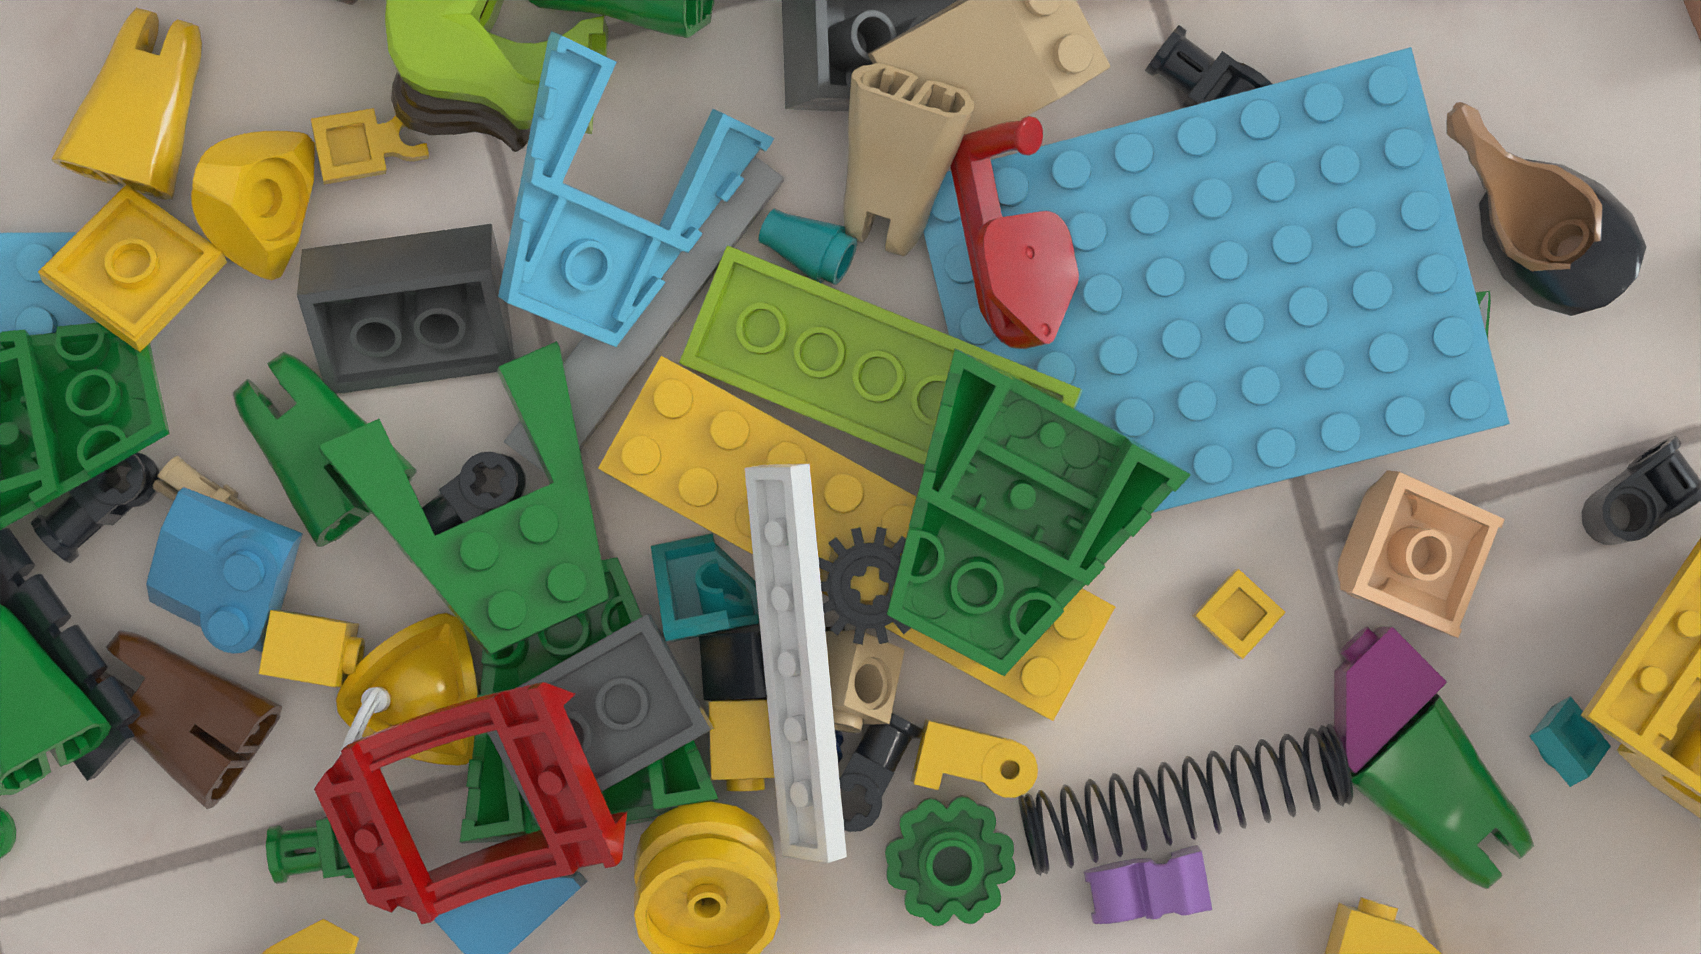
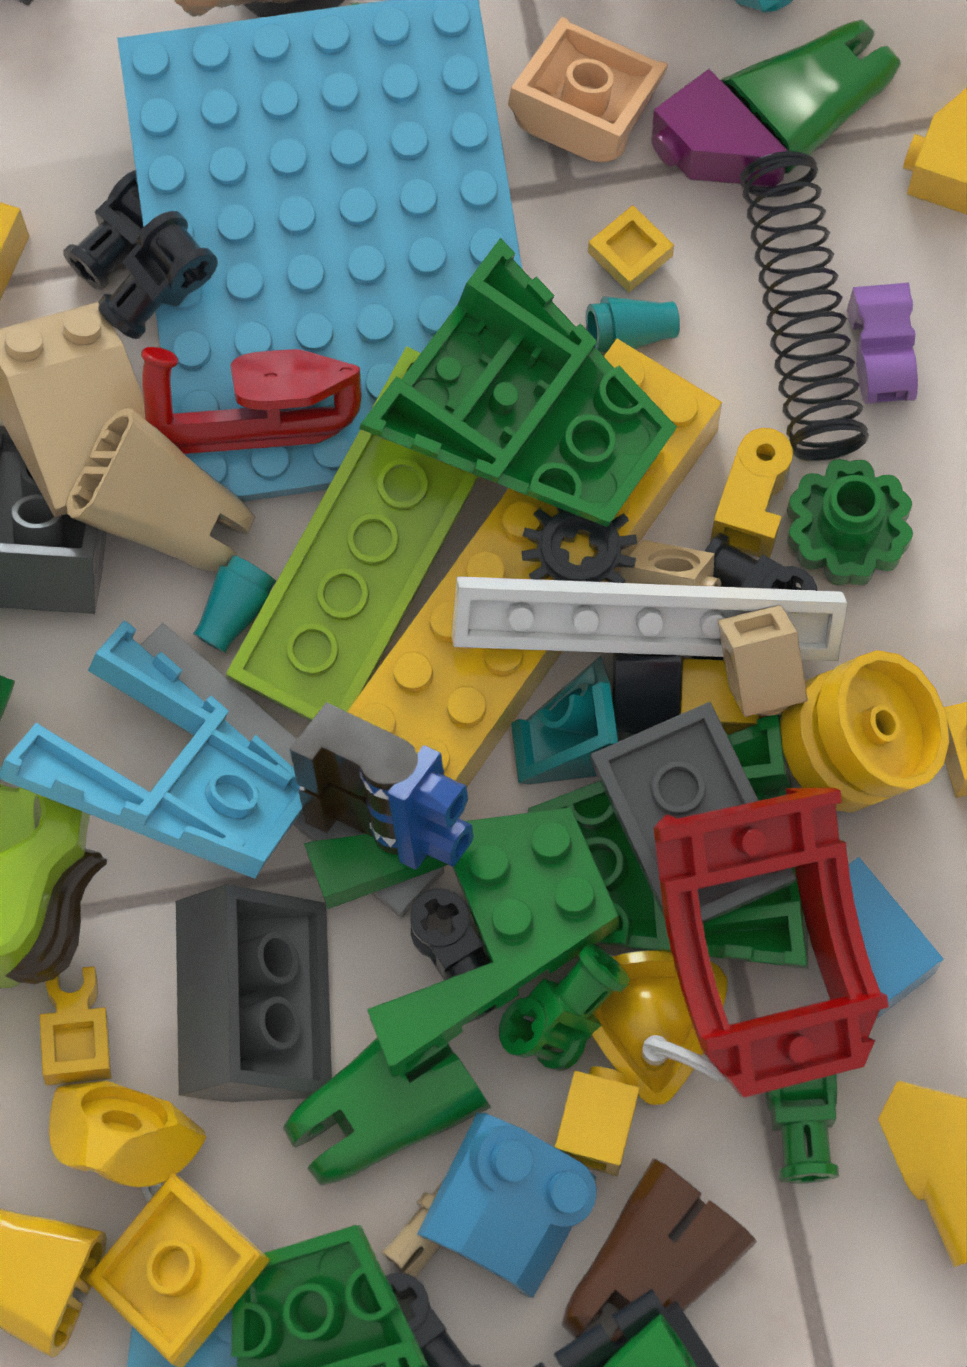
camera: 85 degrees left, 15 degrees down
(403, 608) = (562, 1011): none -> green connector
(580, 435) = (379, 787): none -> hips
(758, 780) = (763, 661): none -> tan brick
(1139, 124) = (162, 270): none -> black connector
(1150, 617) = (631, 321): none -> teal cone

